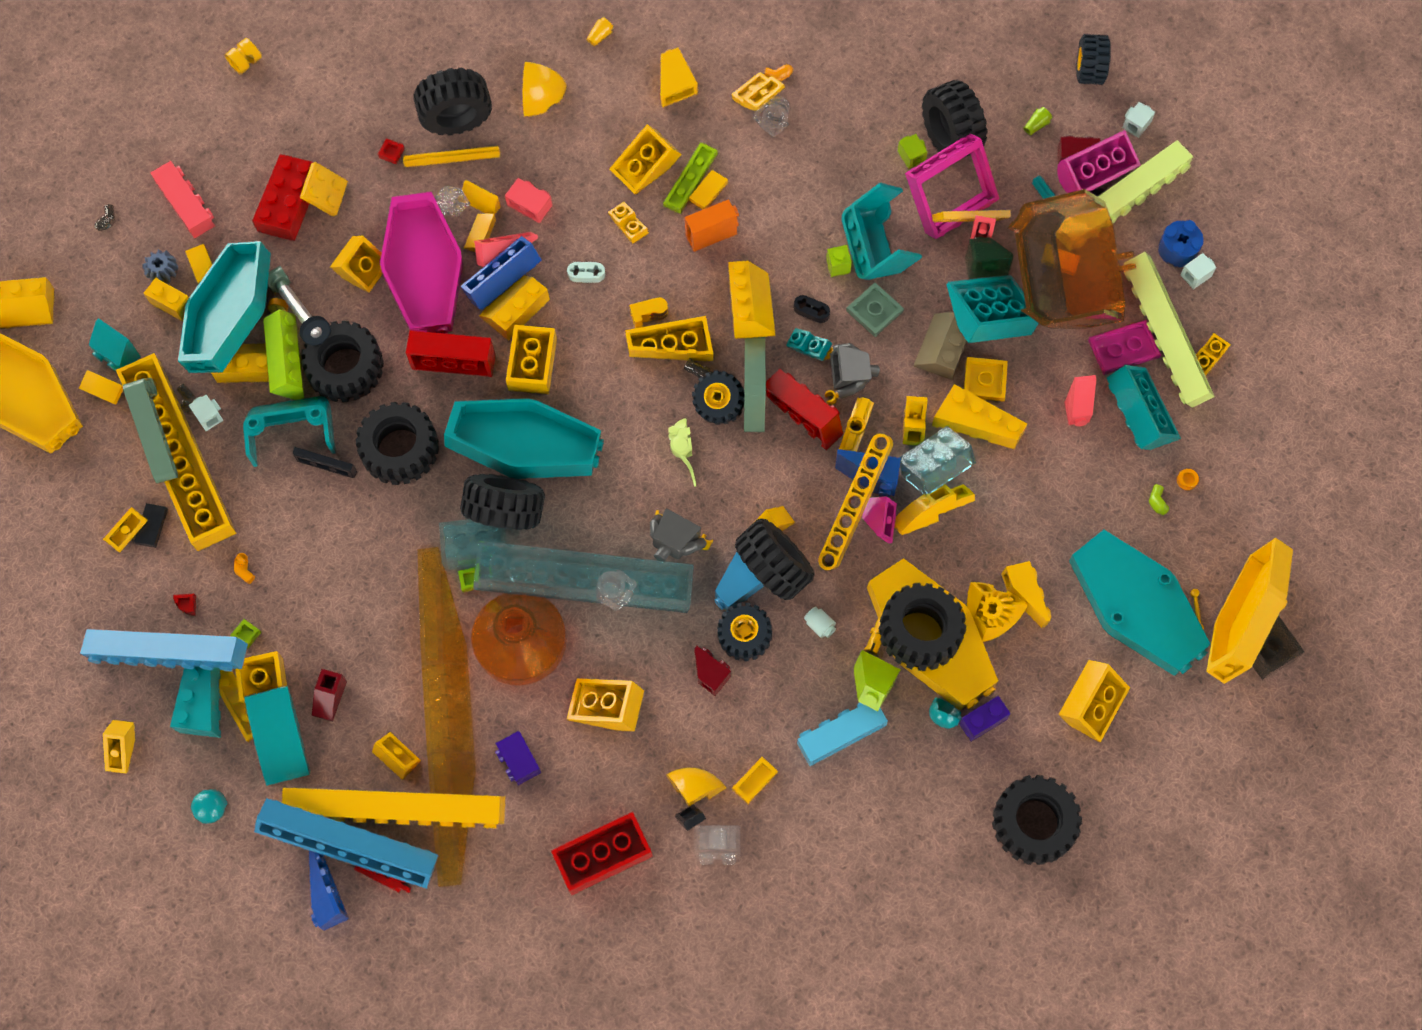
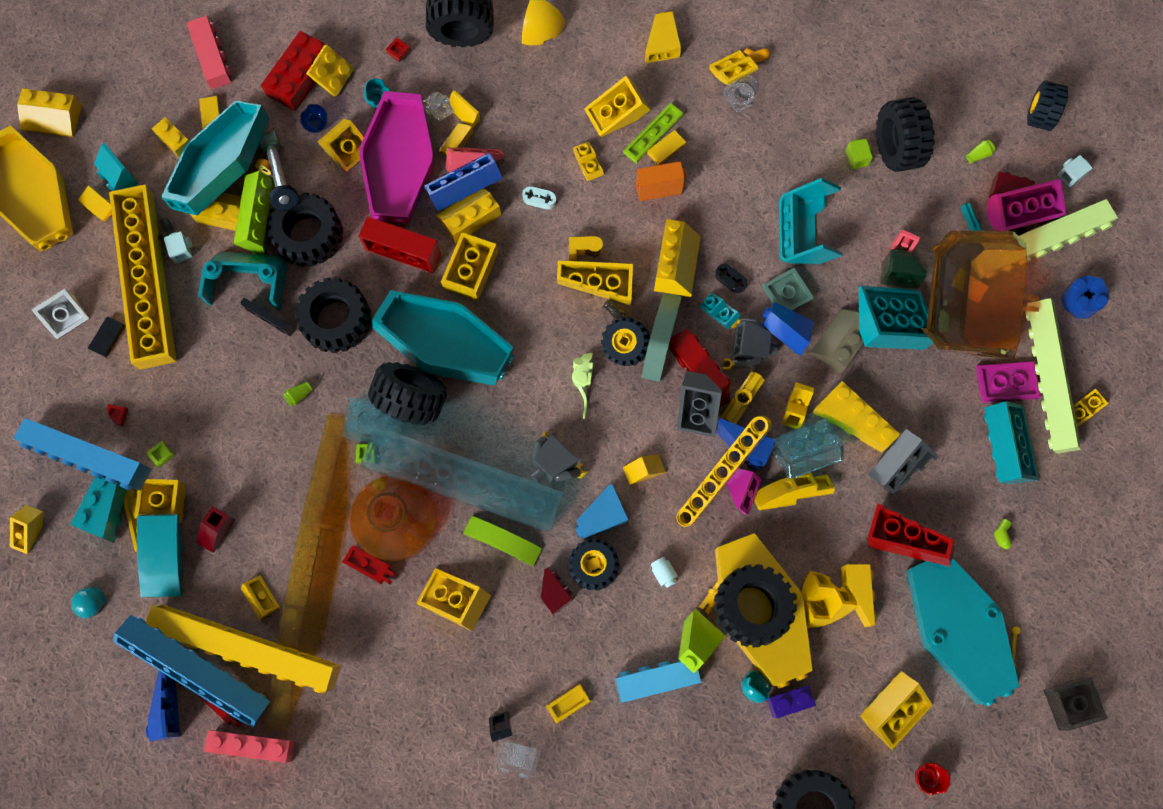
camera: 15 degrees right, 5 degrees up
(94, 511) = (60, 313): none -> white slope
(106, 220) = (141, 56): clear smoke arm -> none
(125, 529) = (82, 335): yellow slope -> none
(149, 428) = (117, 251): sand green beam -> none
(160, 266) = (174, 107): sand blue gear -> none
(241, 568) = (172, 394): light orange arm -> none
(319, 243) = (314, 118): none -> clear blue hair
(378, 535) = (297, 393): none -> lime cone
(379, 201) = (374, 91): none -> teal hair
(428, 906) = (249, 746): none -> coral brick
(451, 156) = (451, 66): yellow axle -> none
(505, 692) = (368, 565): none -> red hinge
(518, 758) = (363, 629): dark purple brick -> none
(528, 200) = (505, 120): coral brick -> none
(602, 853) = (413, 738): red brick -> none
(611, 589) = (481, 500): clear piece -> none
(641, 631) = (502, 540): none -> lime slope
(695, 784) = (512, 694): yellow brick -> none
(774, 559) = (636, 507): black tyre -> none
(813, 442) = (699, 405): none -> dark grey slope
(838, 261) = (766, 240): lime brick -> none
(884, 342) = (788, 327): none -> blue slope
(968, 145) = (912, 161): dark pink window -> none
(969, 216) = (894, 226): yellow tile -> none
(986, 378) = (872, 381): yellow plate -> none
(997, 609) = (828, 604): yellow gear -> none
(1036, 450) = (902, 461): none -> dark grey wedge
(1062, 525) = (907, 538): none -> red wedge
(1080, 400) = (955, 425): coral slope -> none
(1147, 757) = (932, 778): none -> red hair
(1187, 479) = (1036, 521): light orange tile -> none
(1198, 270) = (1095, 326): light aqua brick -> none
(1250, 611) = (1066, 669): yellow container -> none

